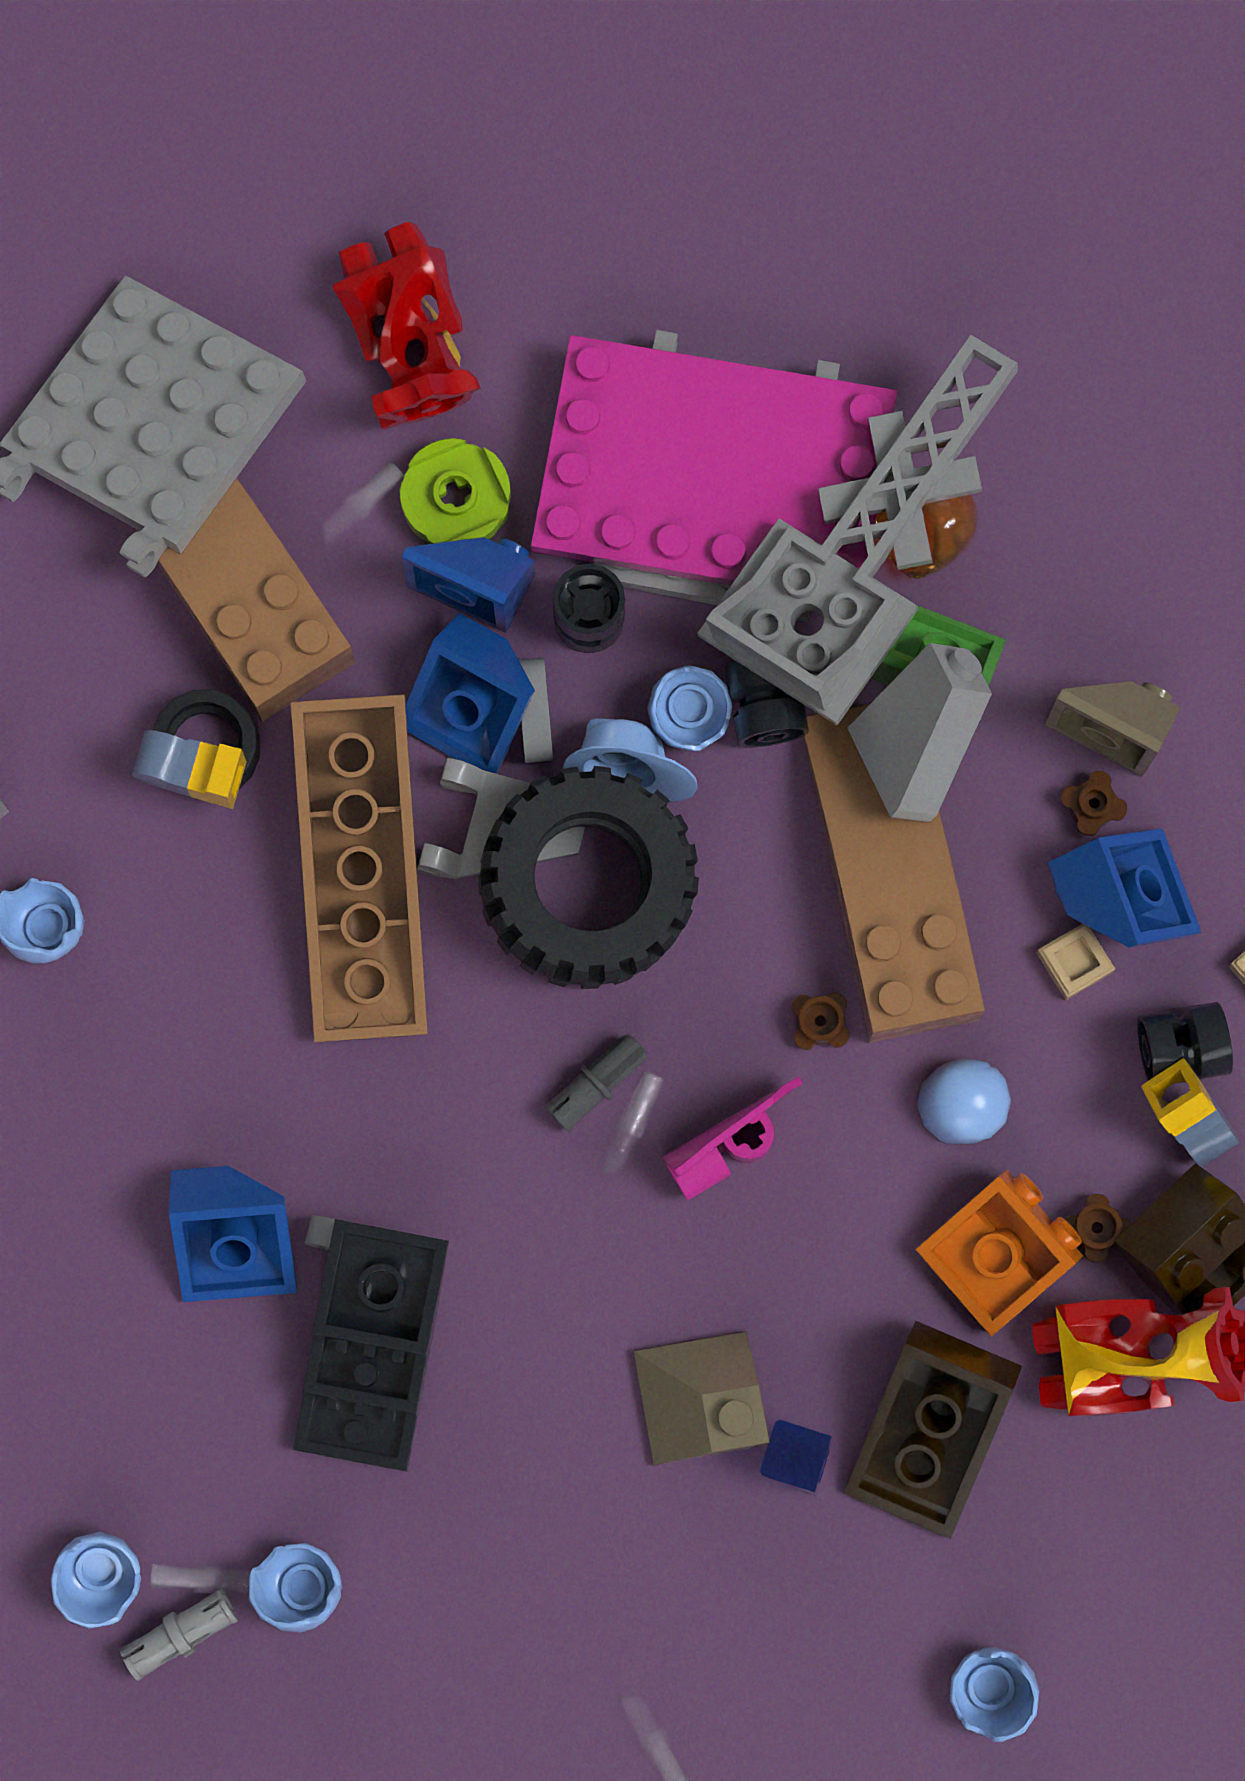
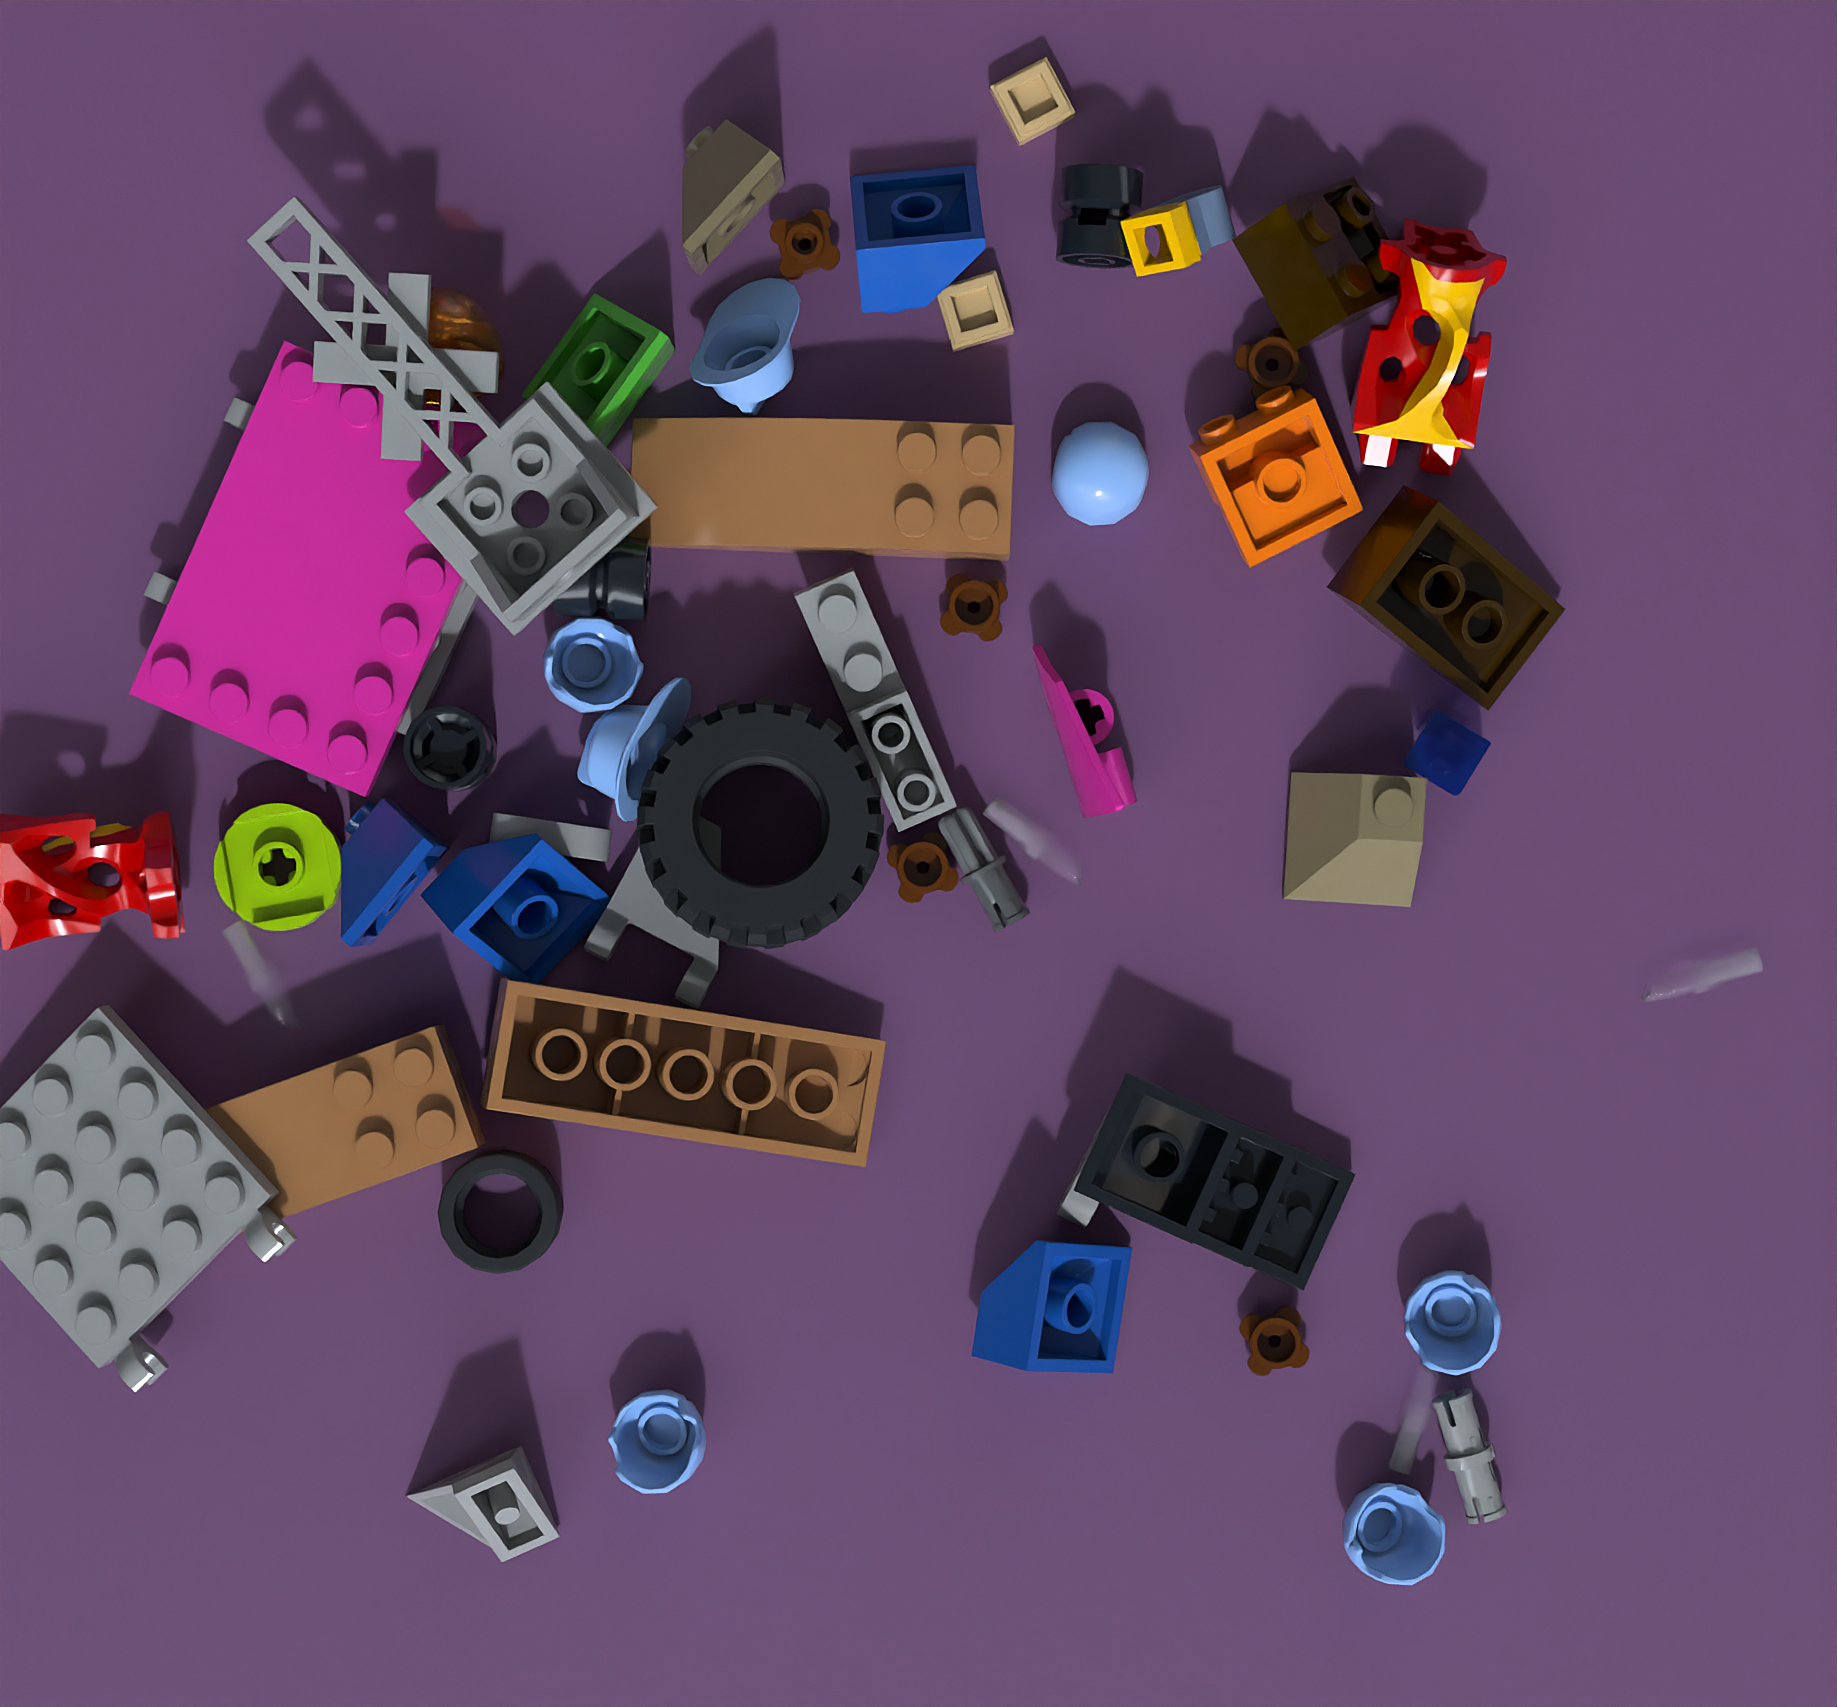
camera: 75 degrees left, 10 degrees up
(190, 767) = (529, 1236): leg -> none
(227, 1430) = (1289, 1351): none -> reddish brown plate
(569, 1028) = (905, 862): none -> reddish brown plate
(719, 953) = (875, 699): none -> light grey slope
(922, 729) = (688, 413): light grey slope -> none
(994, 1693) = (1742, 603): light blue hair -> none
(999, 775) = (749, 345): none -> light blue piece

